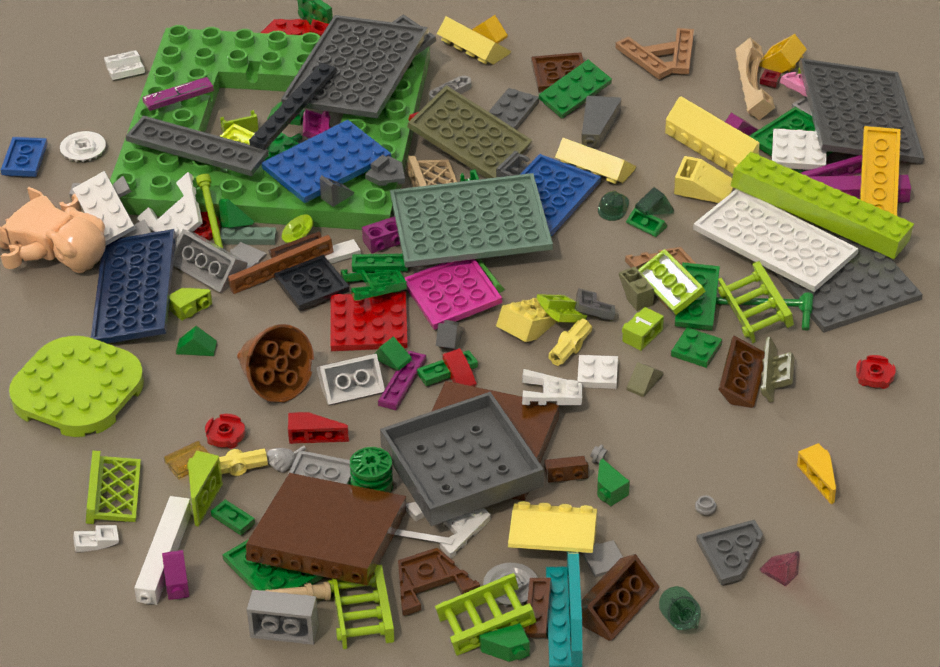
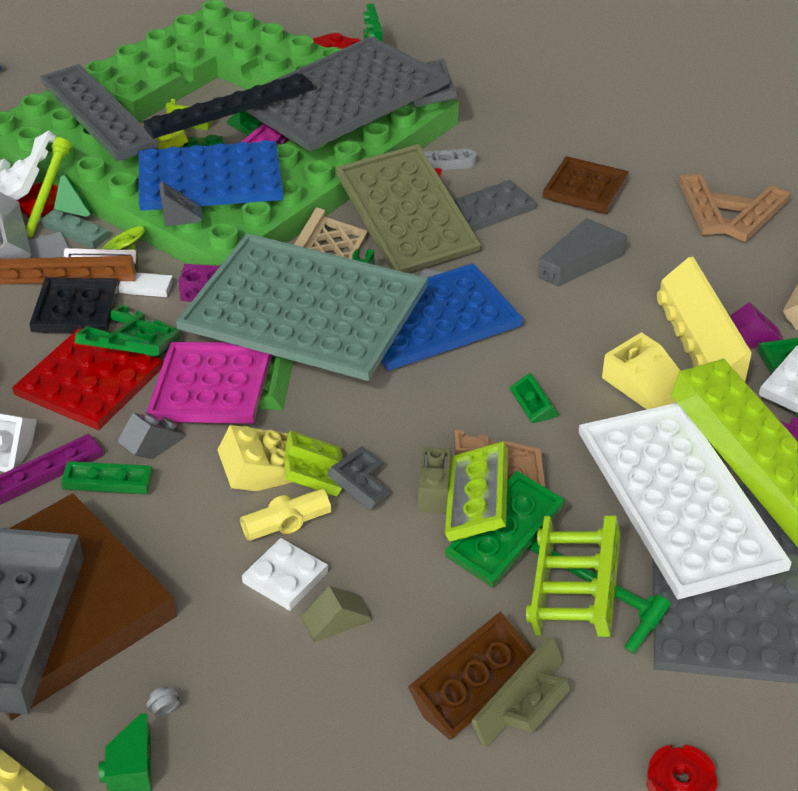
camera: 30 degrees right, 0 degrees up
(82, 146) = (15, 86): white gear -> none
(124, 65) = (145, 22): white slope -> none
(178, 93) = (142, 58): magenta tile -> none
(374, 262) = (161, 309): green plate -> none
(385, 171) = (258, 209): dark grey plate -> none
(393, 354) = (58, 429): green slope -> none
(459, 368) = (112, 487): red slope -> none
(472, 42) = (515, 119): light yellow slope -> none
(491, 29) = (549, 115): yellow slope -> none
(512, 165) = (425, 263): dark grey hinge -> none
(554, 389) = (197, 580): white wing -> none
(566, 469) = (104, 700): reddish brown bracket -> none
(574, 87) = (598, 202): green plate -> none
(594, 161) = (532, 298): light yellow slope -> none
(613, 206) = (511, 360): clear green piece -> none
(642, 328) = (394, 540): lime brick -> none
(654, 203) = (557, 378): clear green slope -> none
(696, 347) = (448, 603): green plate -> none

